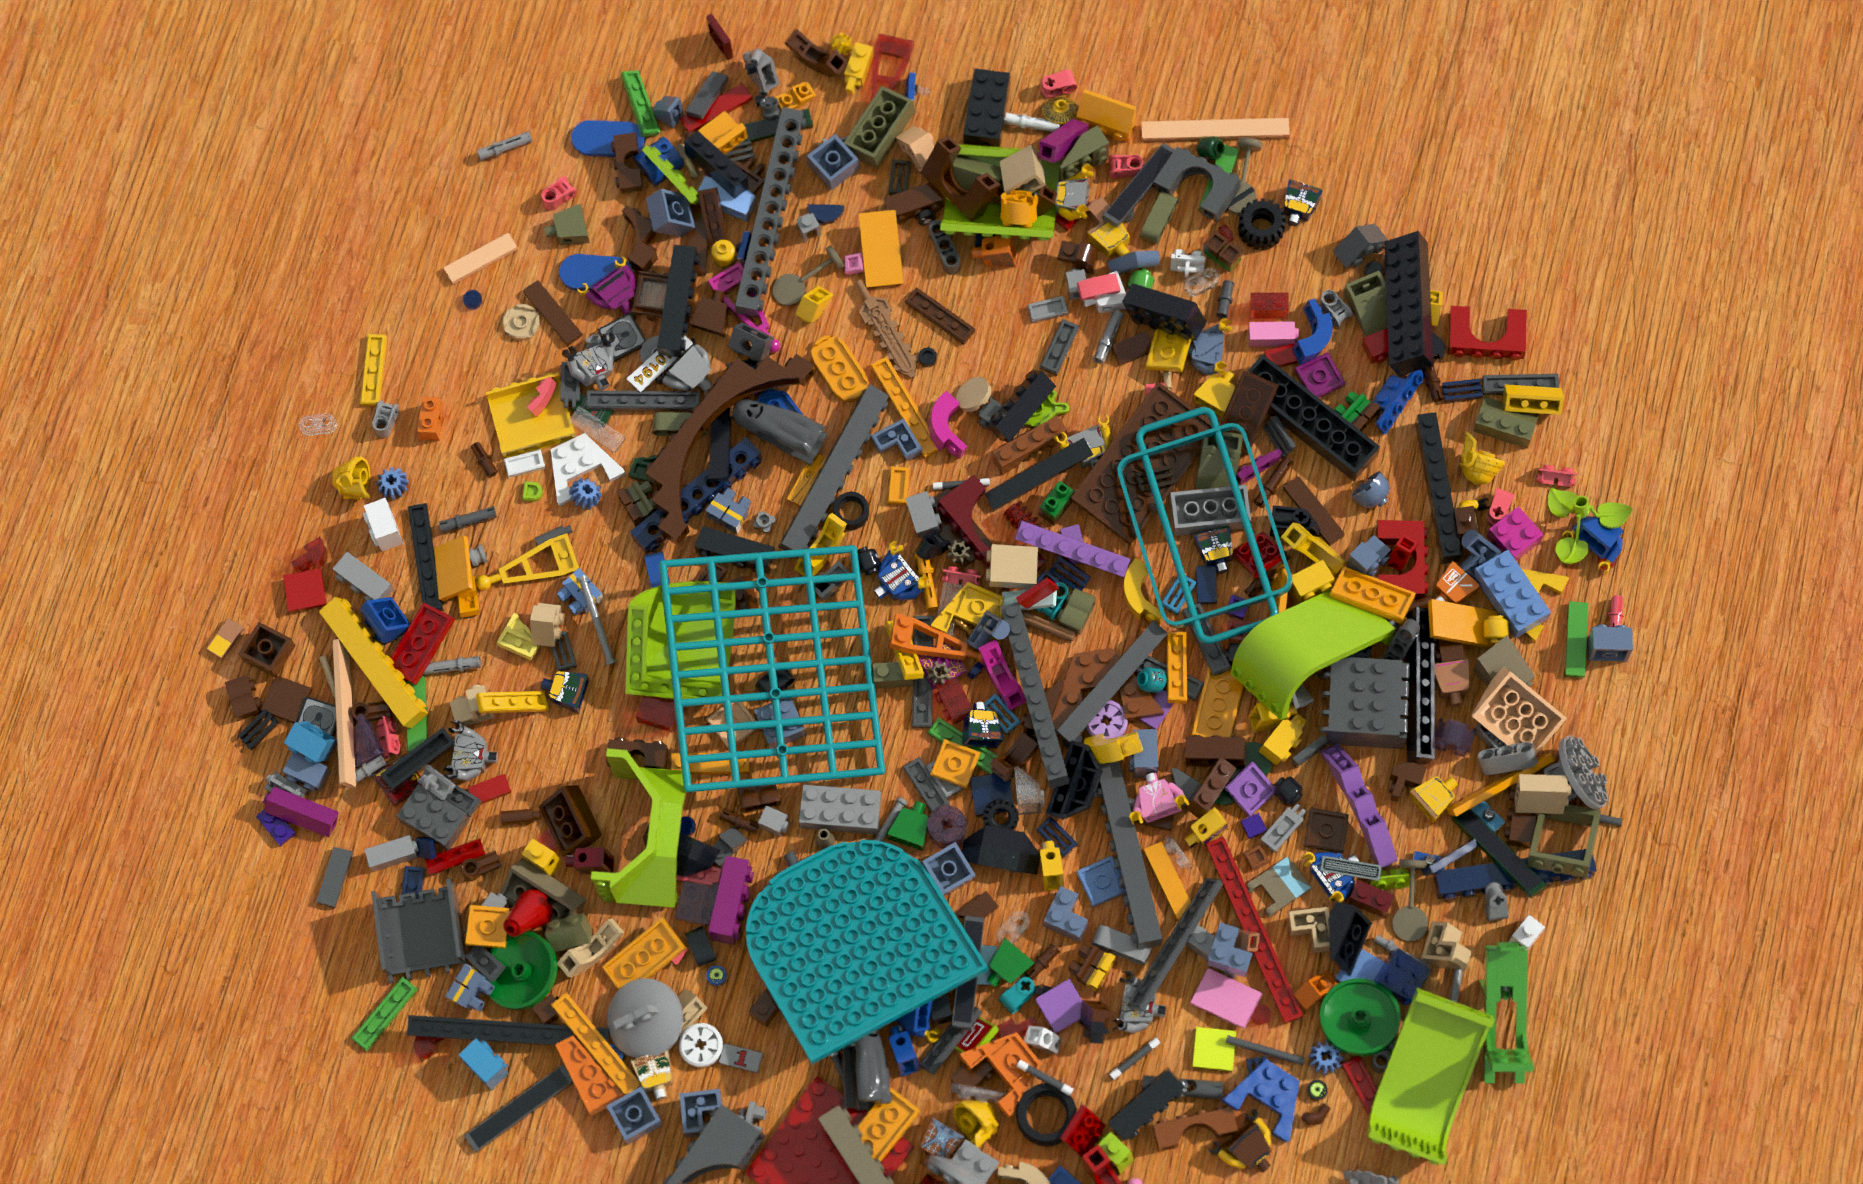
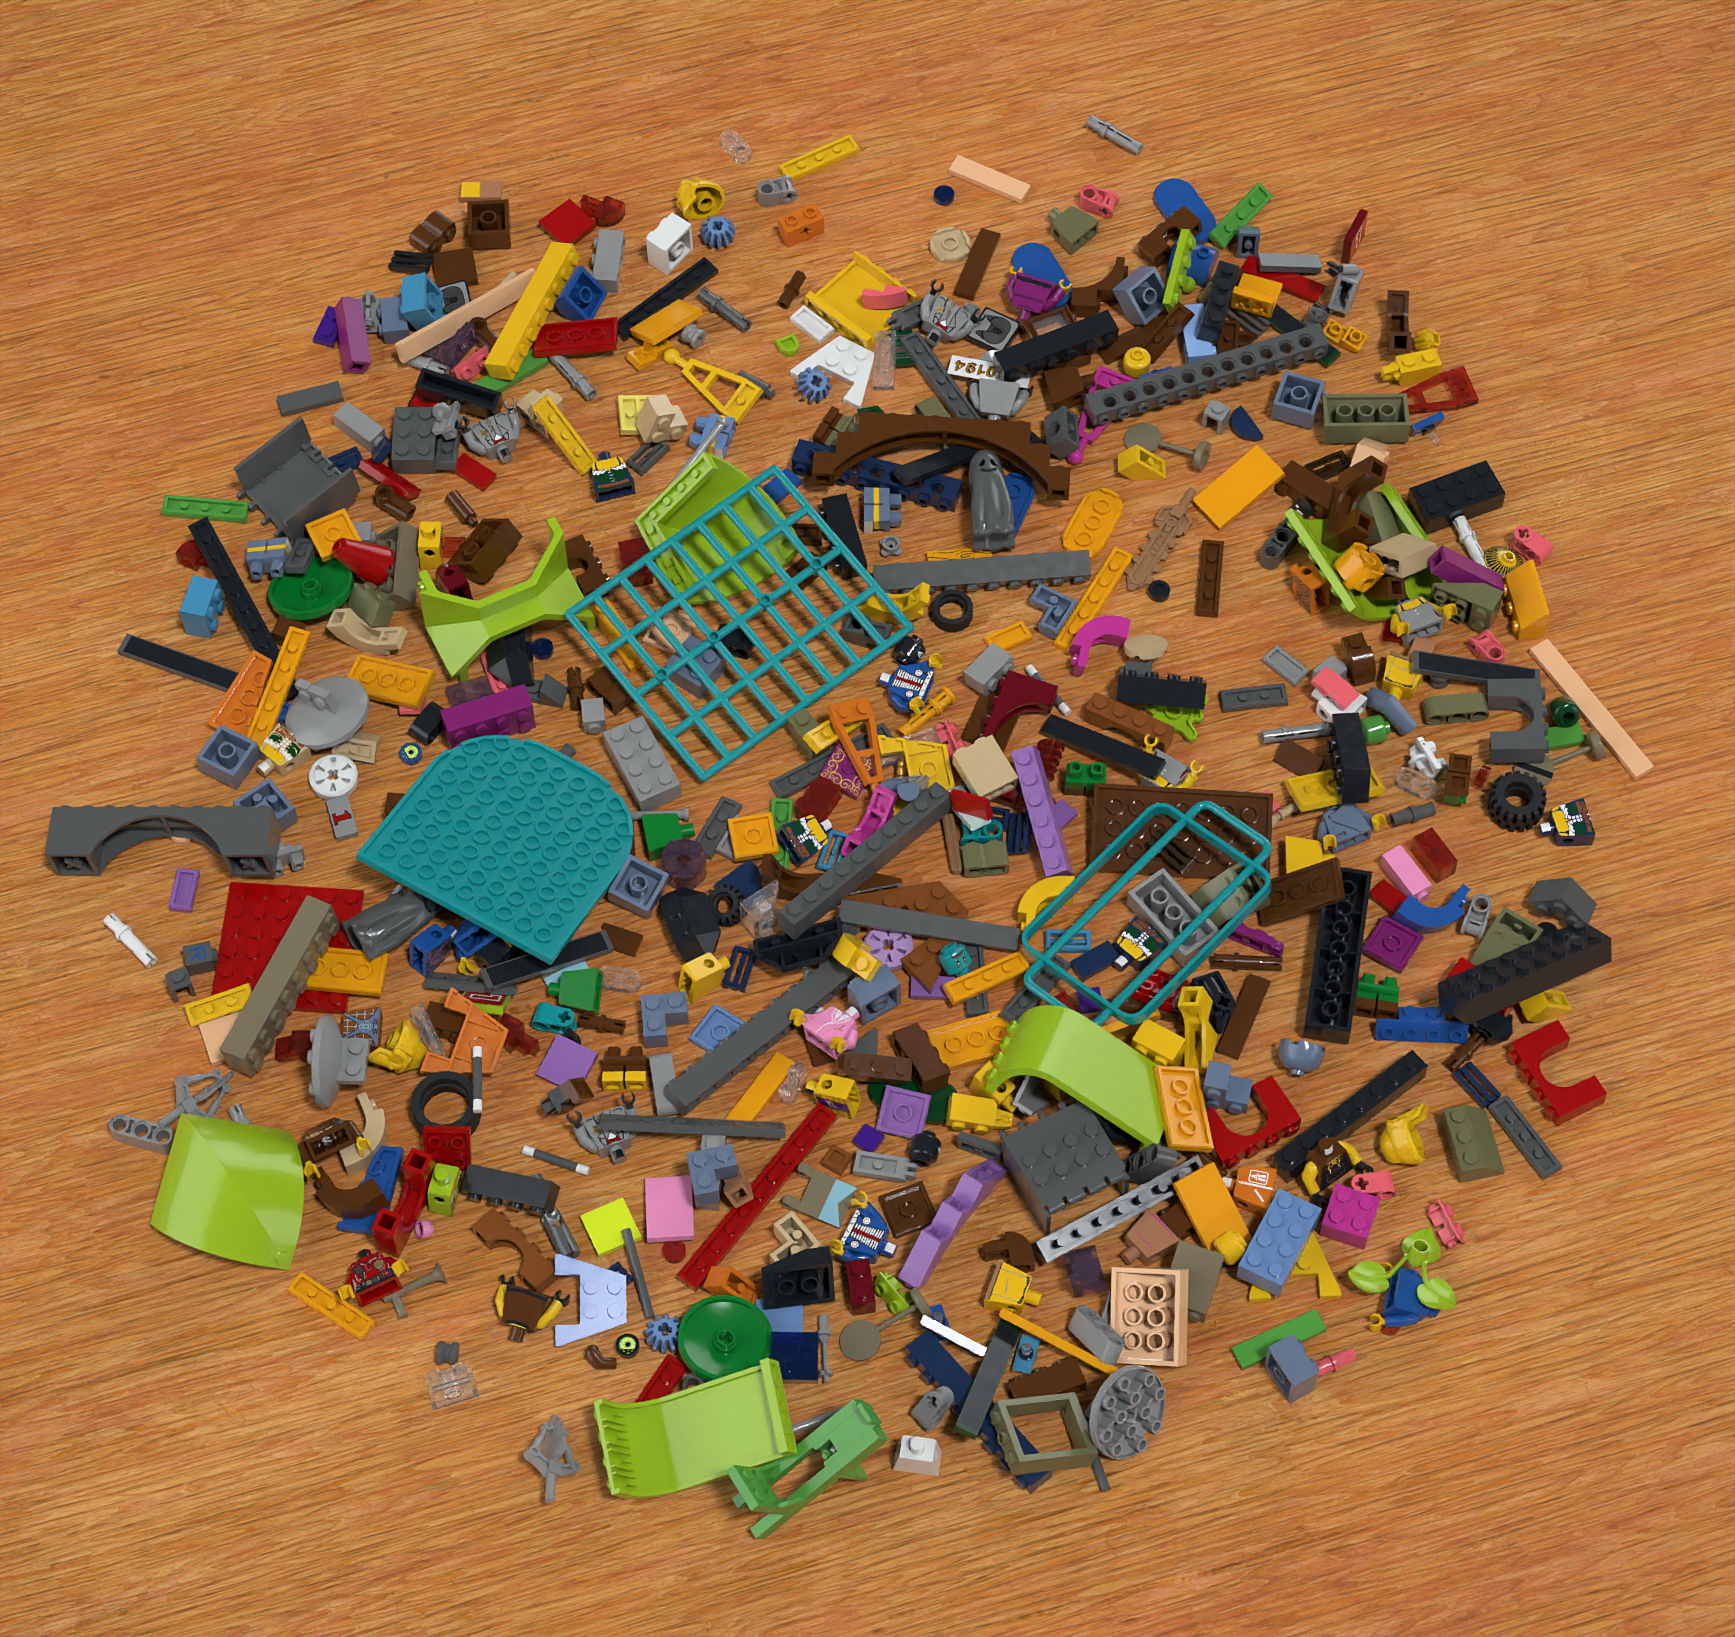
camera: 55 degrees right, 10 degrees down
(823, 843) = (605, 766): dark tan cone -> none
(854, 264) = (1207, 475): bright pink tile -> none
(931, 545) = (962, 693): black piece -> none
(939, 679) = (836, 763): dark tan gear -> none
(962, 549) = (971, 721): dark tan gear -> none
(975, 671) = (860, 803): clear blue tile -> none
(1042, 1039) = (519, 1063): white leg -> none
(1278, 437) = (1299, 940): dark grey tile -> none
(1351, 868) = (878, 1247): sticker -> none
(1402, 553) = (1251, 1116): red leg -> none
(1443, 947) = (853, 1379): tan brick -> none
(1481, 551) = (1306, 1181): sand blue brick -> none
(1533, 399) = (1512, 1153): yellow brick -> none
(1542, 794) = (1071, 1378): tan brick -> none

